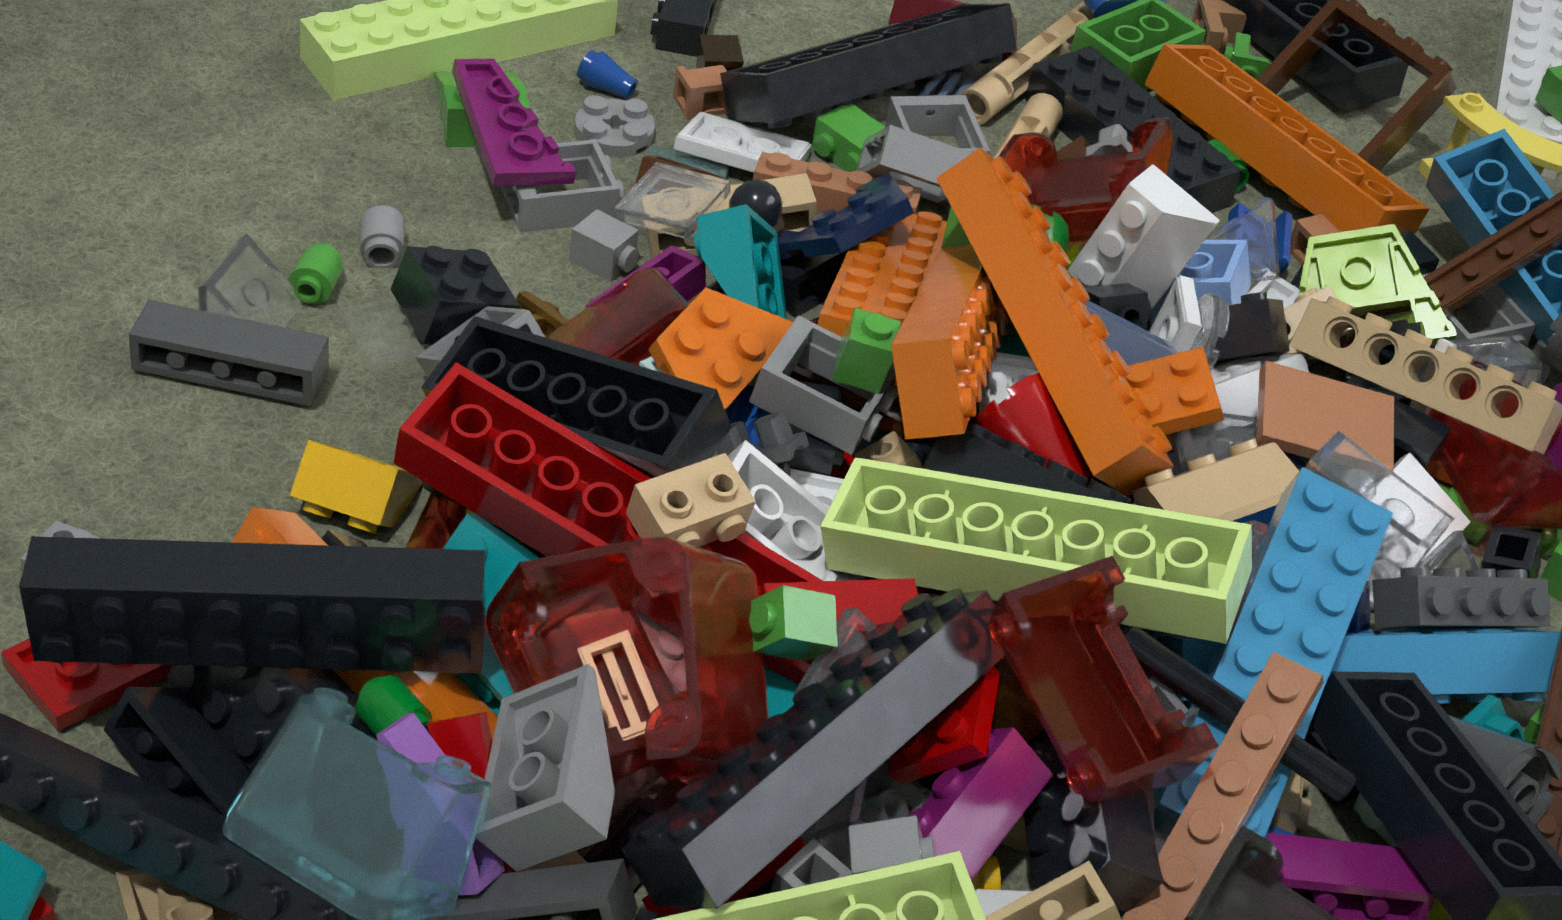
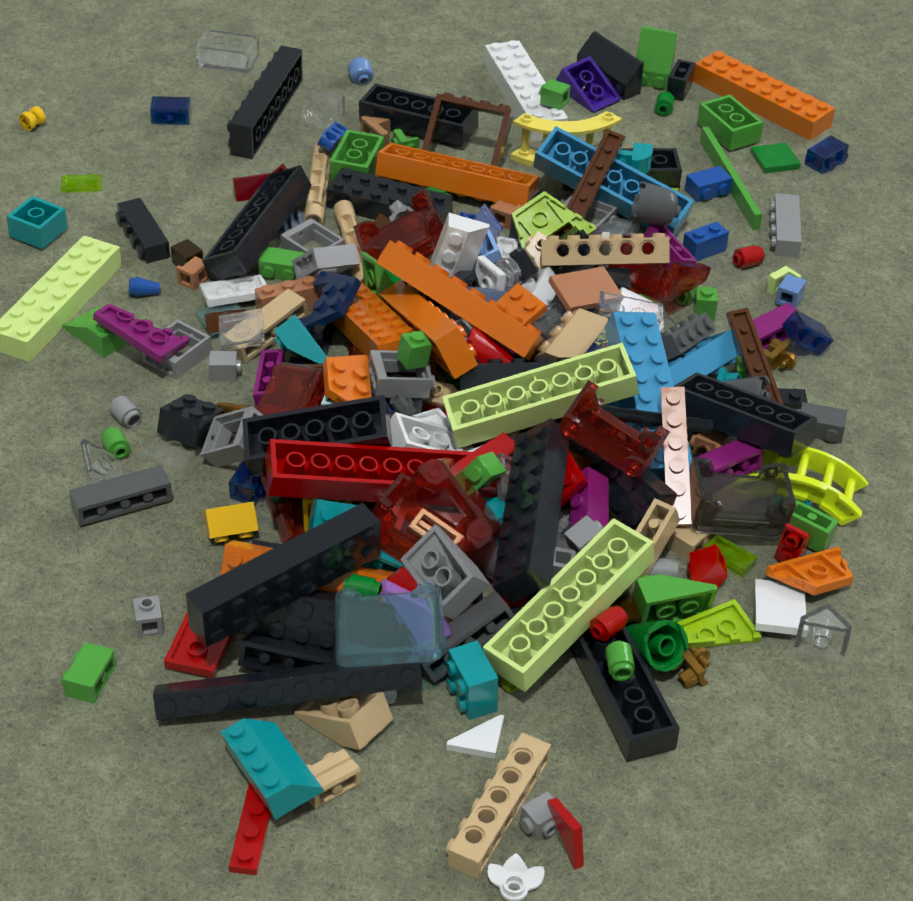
camera: 30 degrees left, 0 degrees up
(631, 117) = (159, 308): light grey plate -> none
(693, 503) = (407, 448): tan brick -> none
(761, 198) = (283, 311): black piece -> none
(1351, 821) = (707, 442): none -> nougat brick
(1512, 550) = (682, 308): black brick -> none

